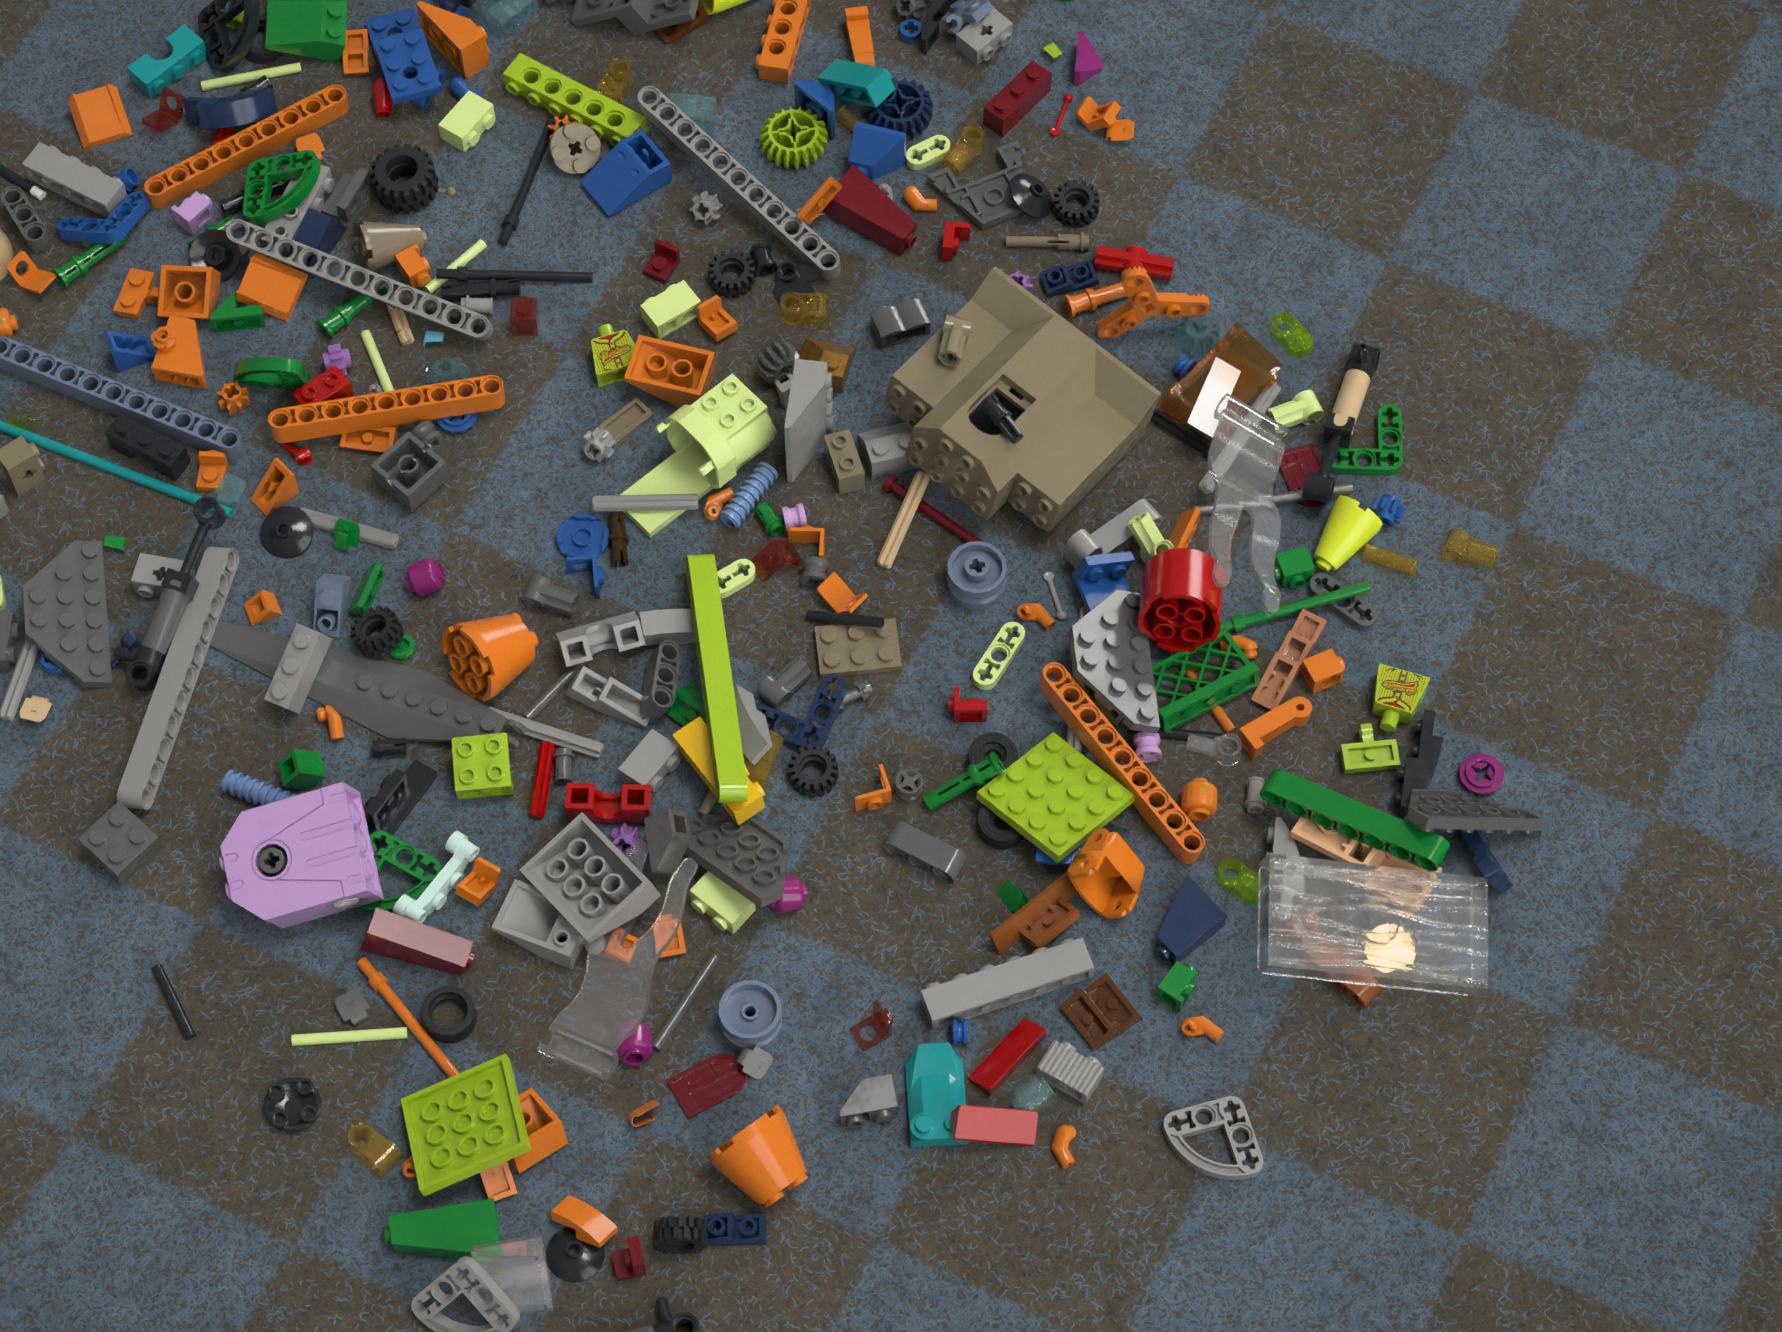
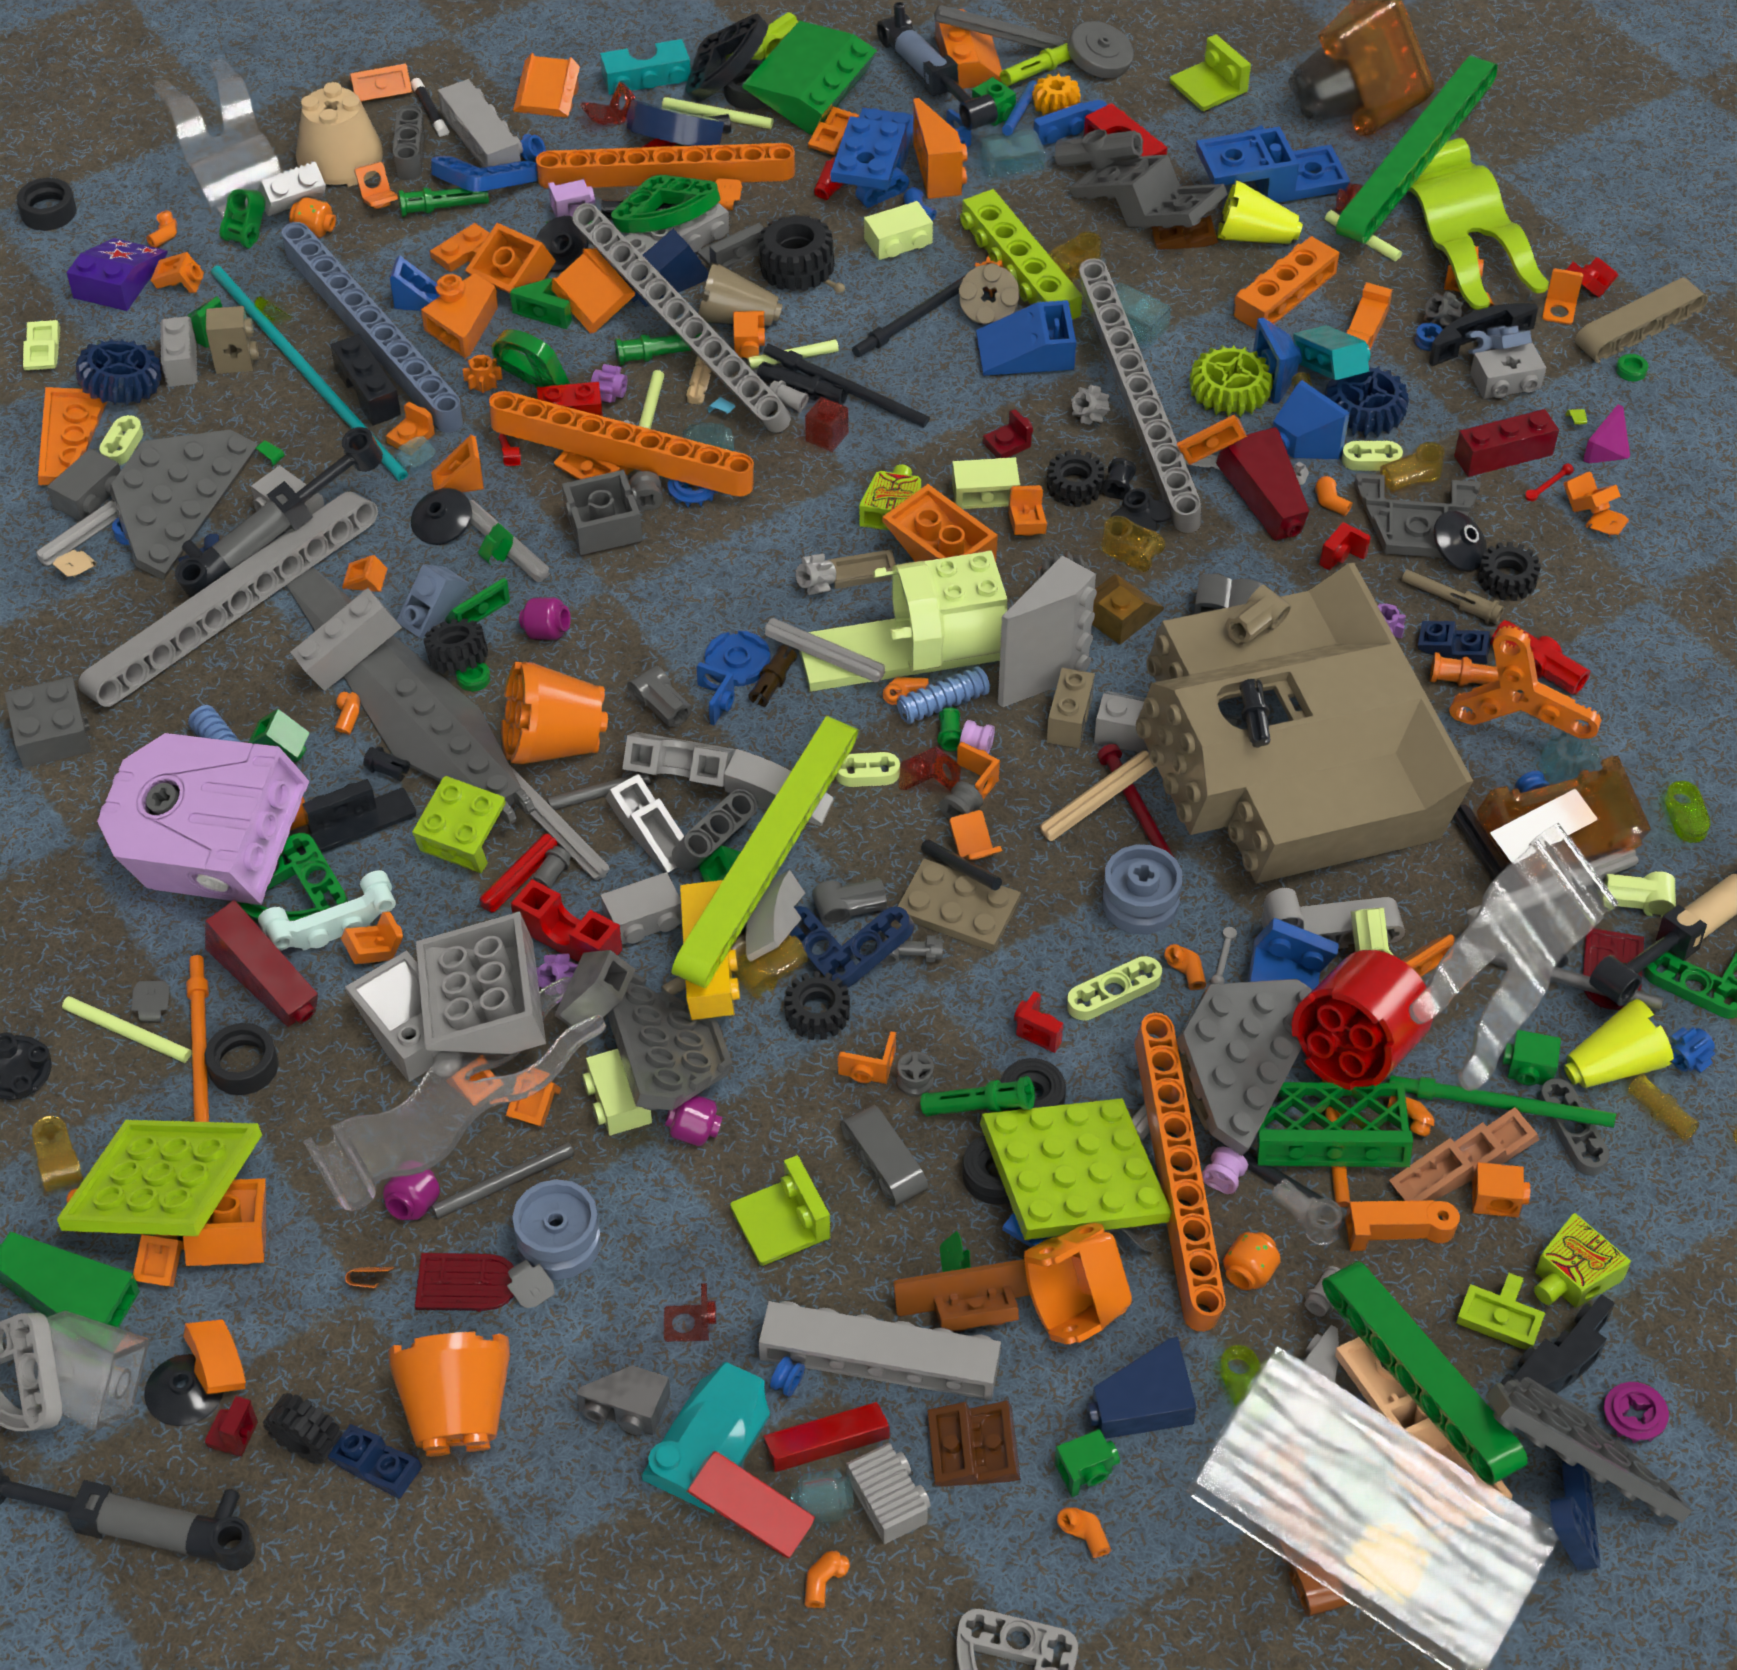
camera: 30 degrees right, 10 degrees down
(887, 927) = (783, 1215): none -> lime bracket

